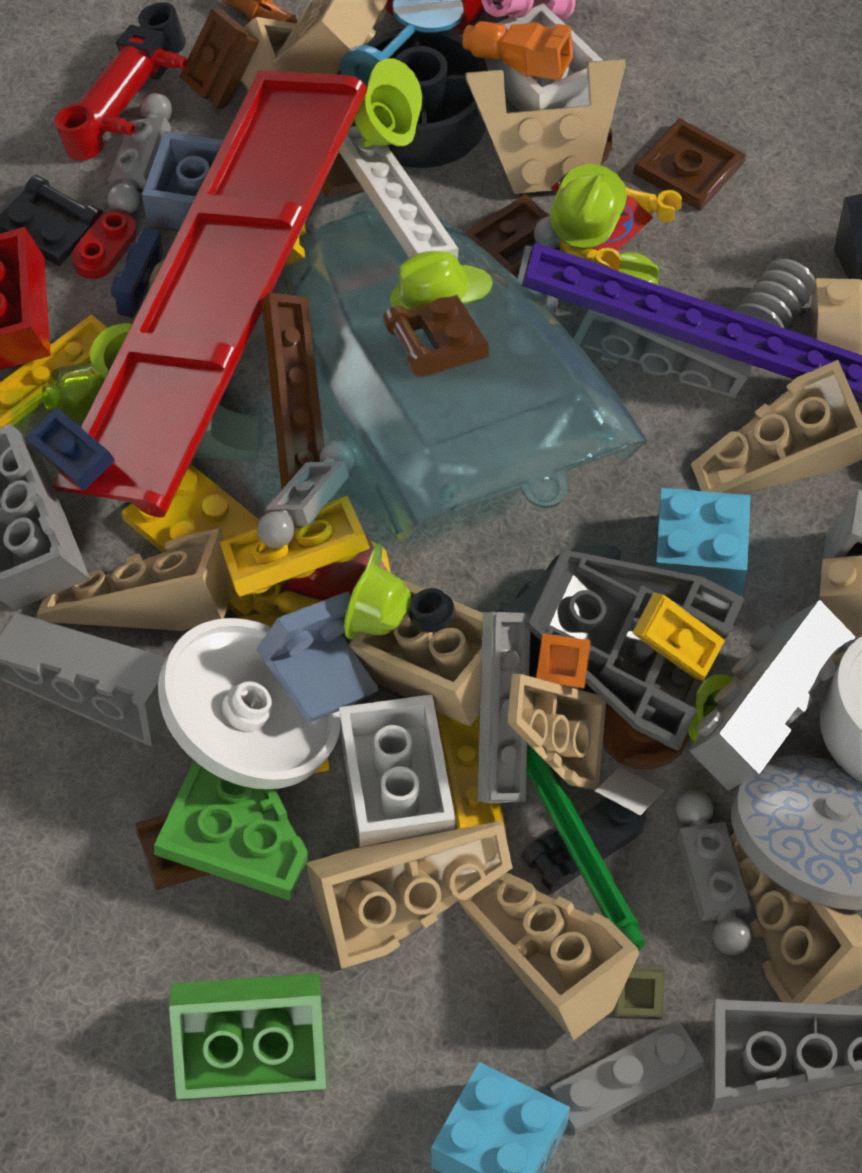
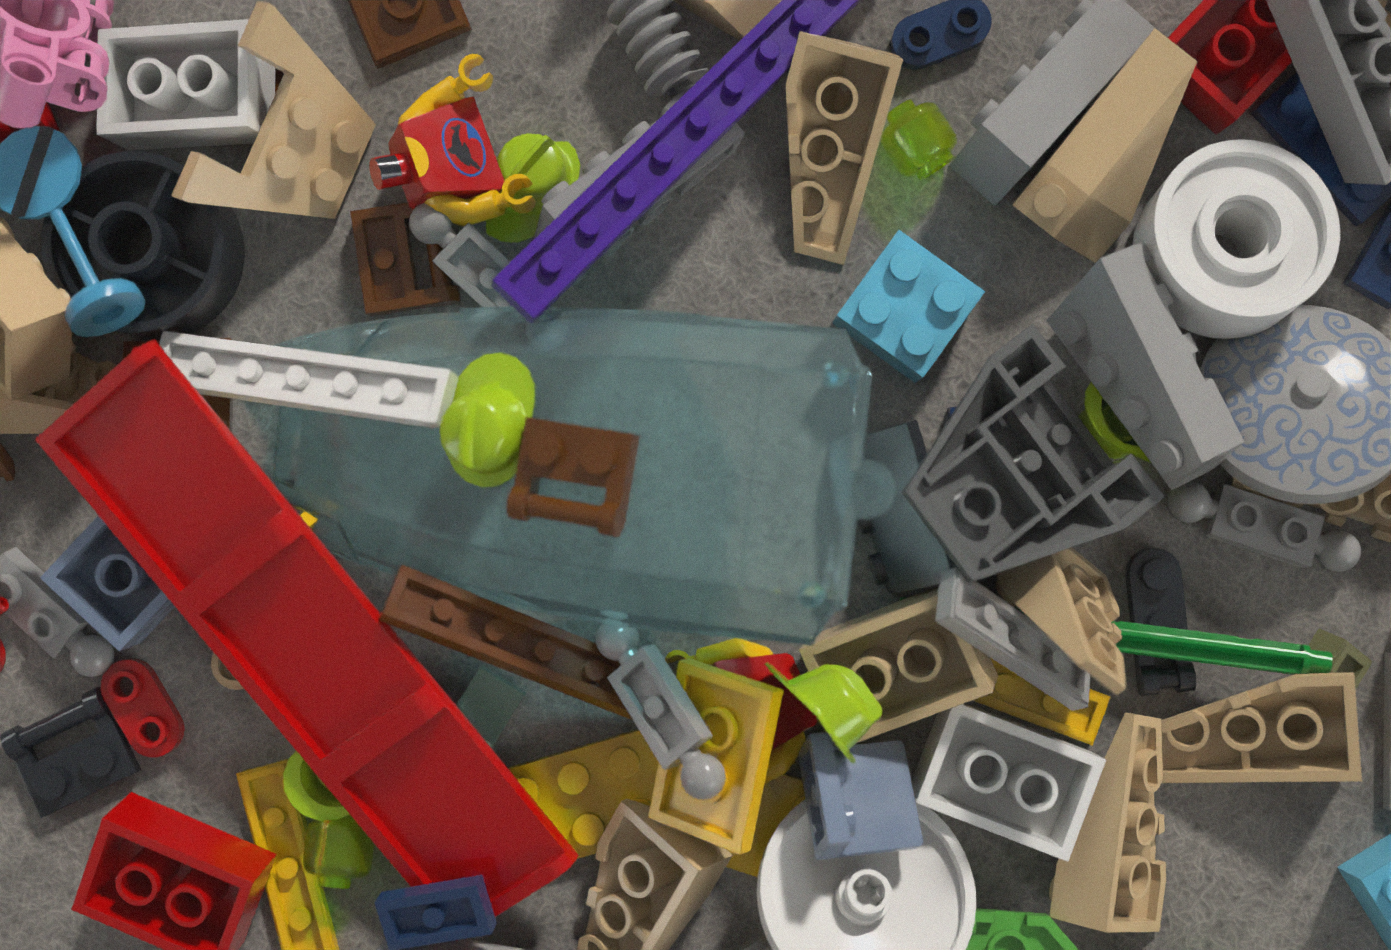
camera: 60 degrees left, 30 degrees up
(133, 282) = (222, 710): dark blue plate -> none
(390, 105) = (172, 310): lime piece -> none
(431, 610) = (868, 670): black plate -> none
(524, 47) = (171, 101): orange piece -> none
(563, 660) = (1041, 574): orange plate -> none
(587, 206) = (433, 166): lime piece -> none
(629, 790) = (1139, 555): white sticker -> none
(678, 636) = (1051, 425): yellow plate -> none
(825, 493) = (918, 139): none -> clear neon green head

